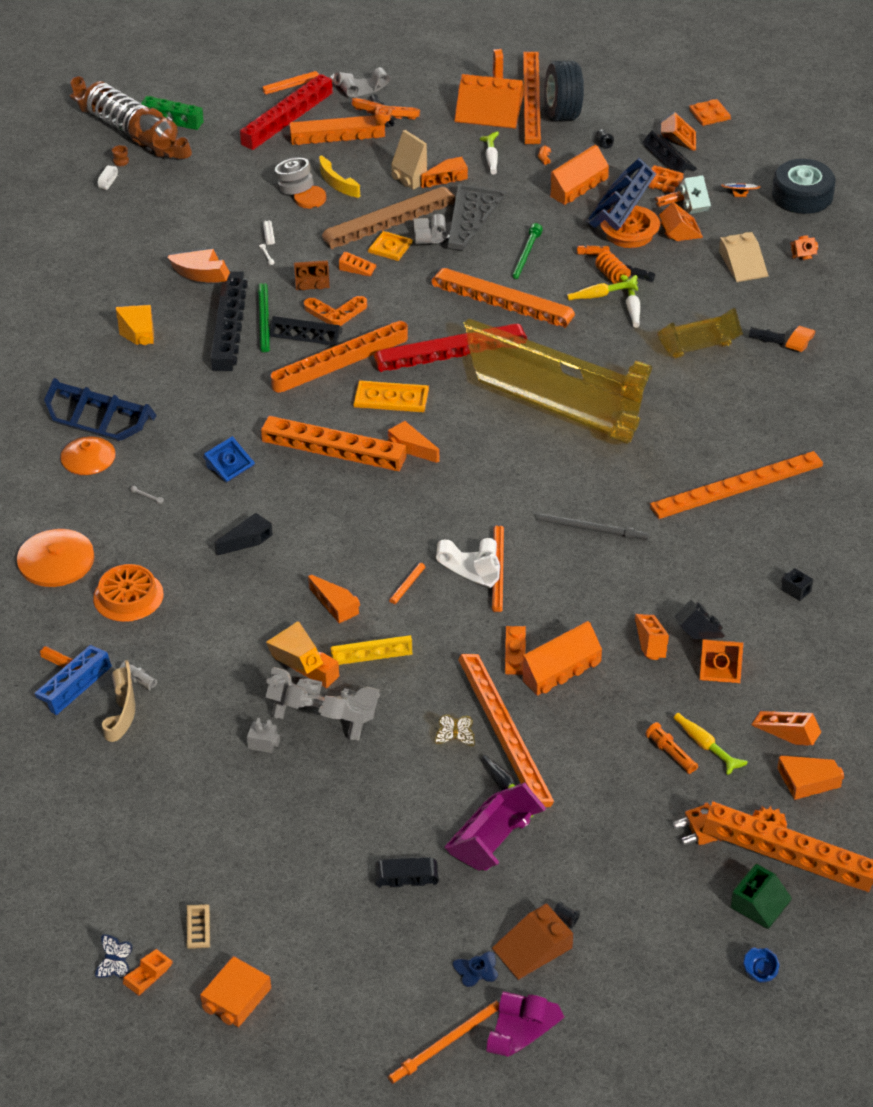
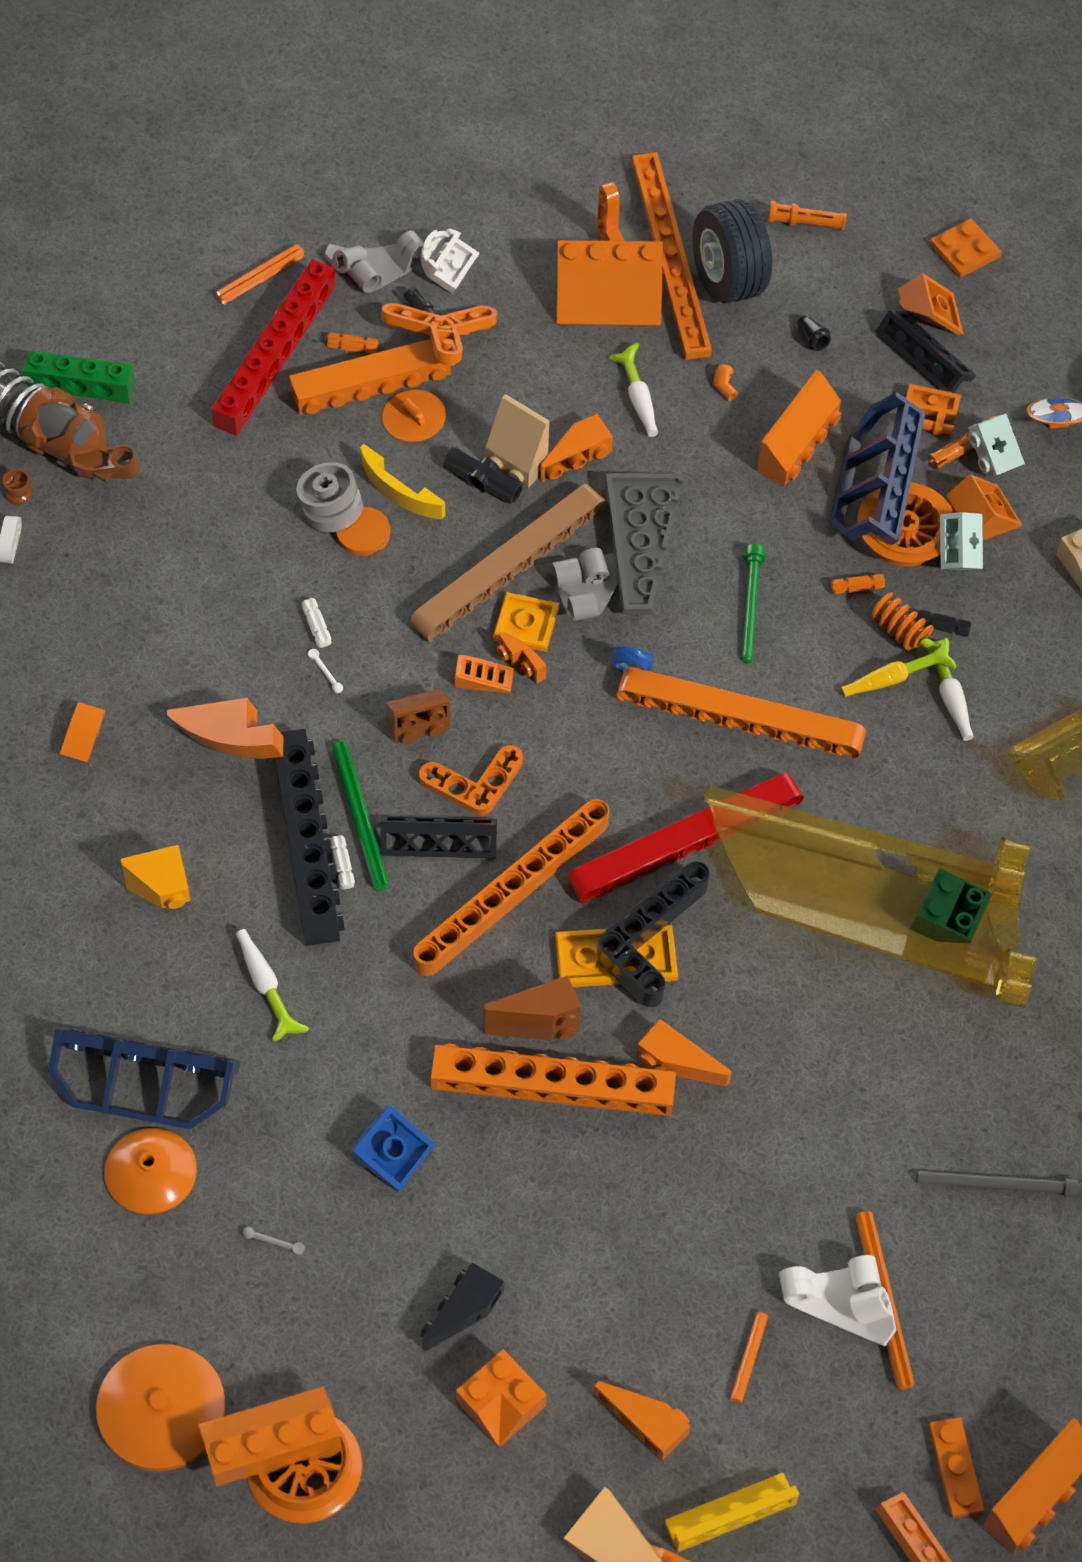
camera: 15 degrees left, 15 degrees up
(109, 571) = (270, 1436): none -> orange slope
(117, 262) = (82, 732): none -> orange slope
(183, 383) = (266, 984): none -> piece
(245, 336) = (342, 862): none -> white axle
(252, 577) = (501, 1398): none -> orange slope
(330, 115) = (352, 343): none -> orange axle
(330, 408) = (535, 1013): none -> dark orange slope
(357, 151) = (413, 416): none -> orange shield
(381, 258) = (517, 653): none -> orange slope
(387, 179) = (483, 474): none -> black piece
(394, 386) = (647, 927): none -> black beam
(399, 84) = (446, 258): none -> white slope
(446, 260) = (631, 655): none -> blue piece
(594, 391) = (950, 909): none -> dark green slope
(610, 86) = (793, 214): none -> orange pin
(659, 232) = (961, 541): none -> light aqua brick

